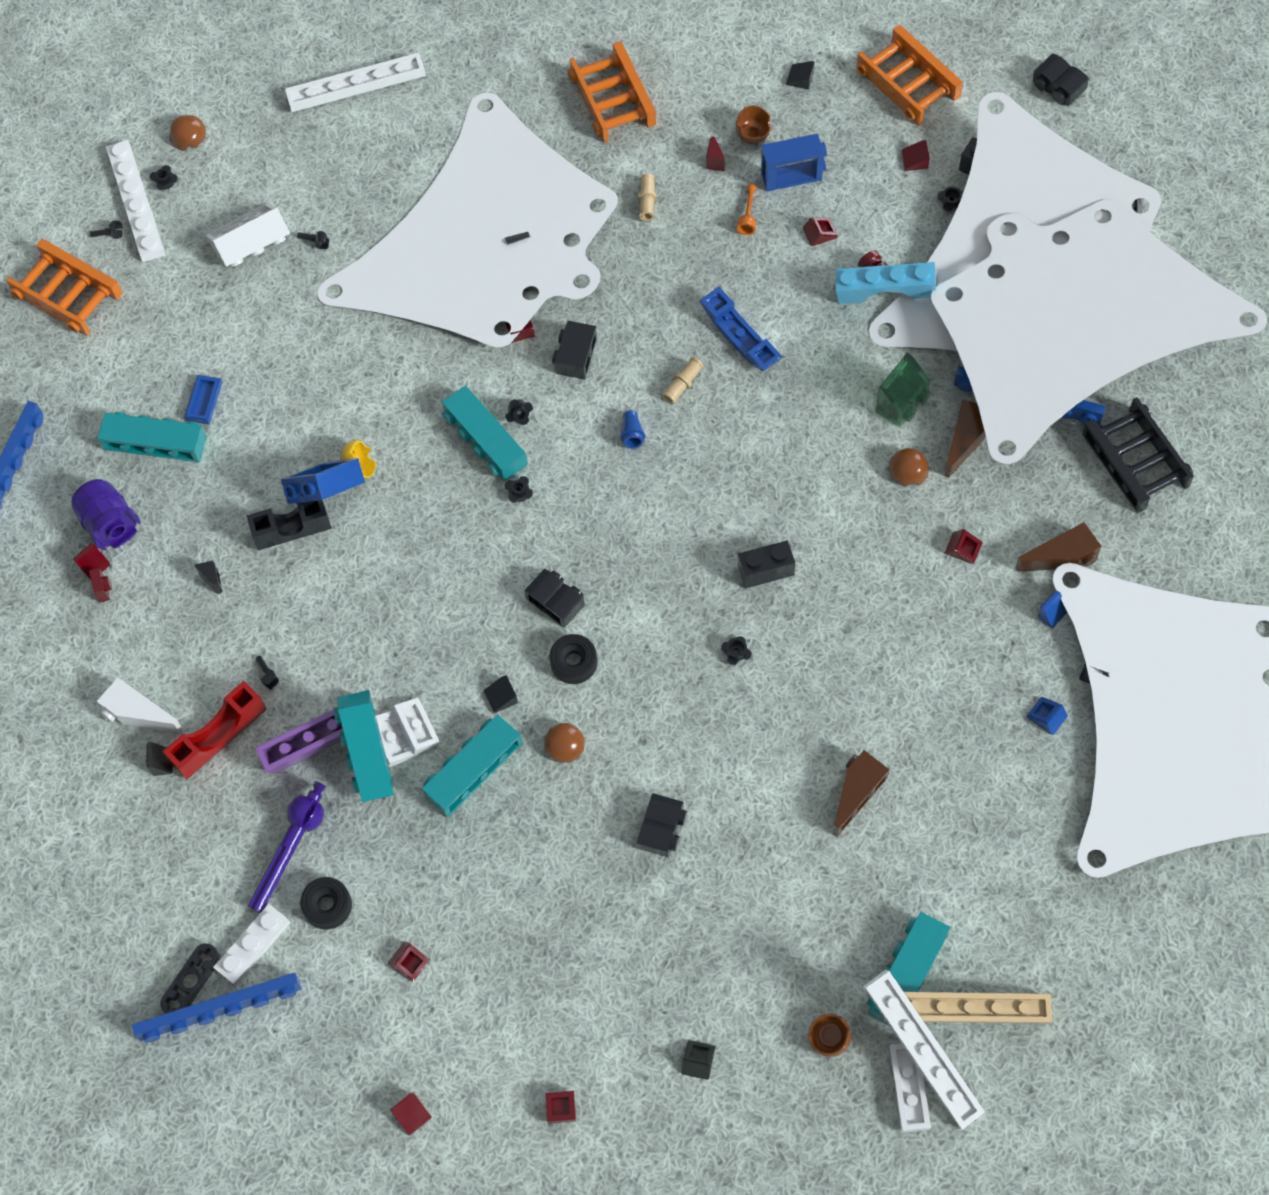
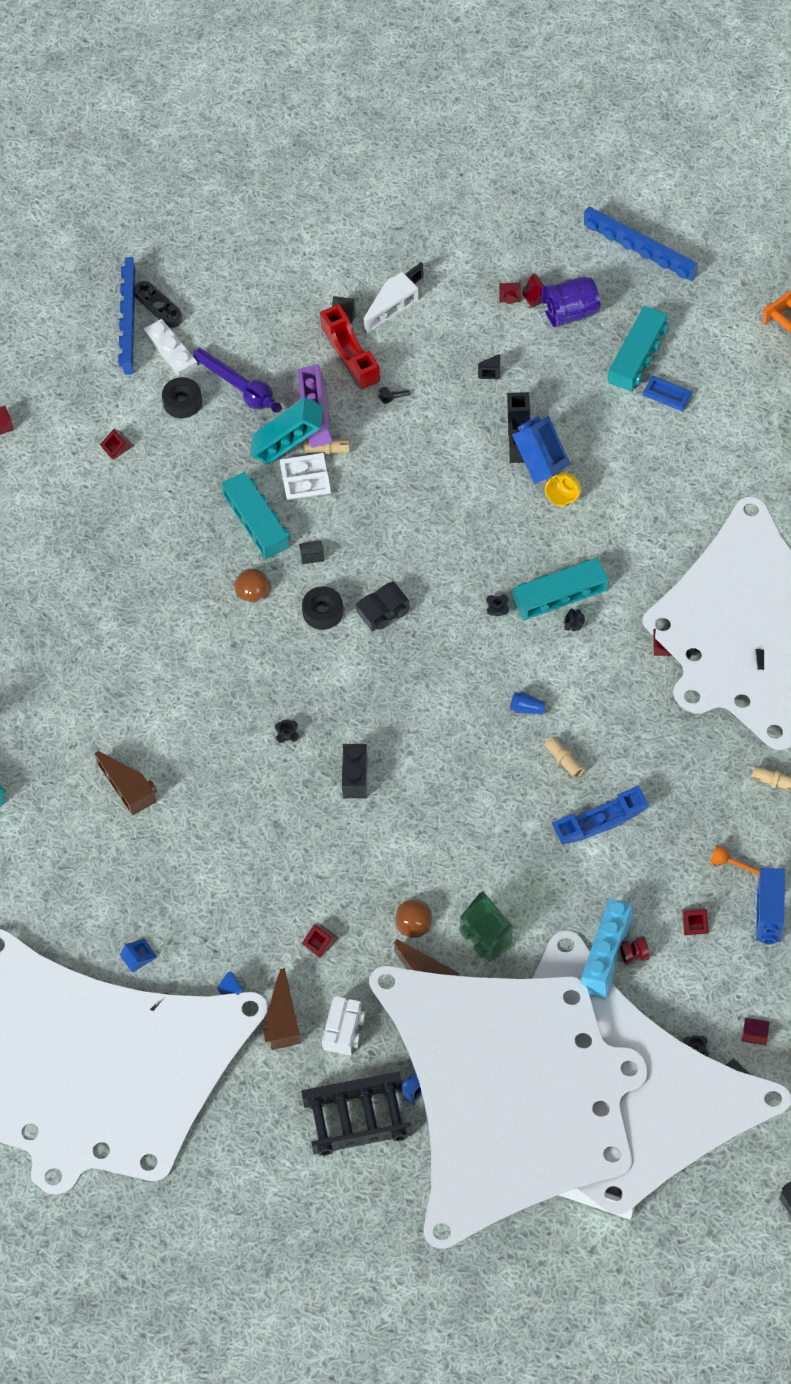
camera: 105 degrees right, 5 degrees down
(87, 699) = (416, 273): none -> black slope
(575, 349) = (622, 678): black brick -> none
(661, 824) = (153, 634): black brick -> none
(1052, 493) = (343, 1025): none -> white brick

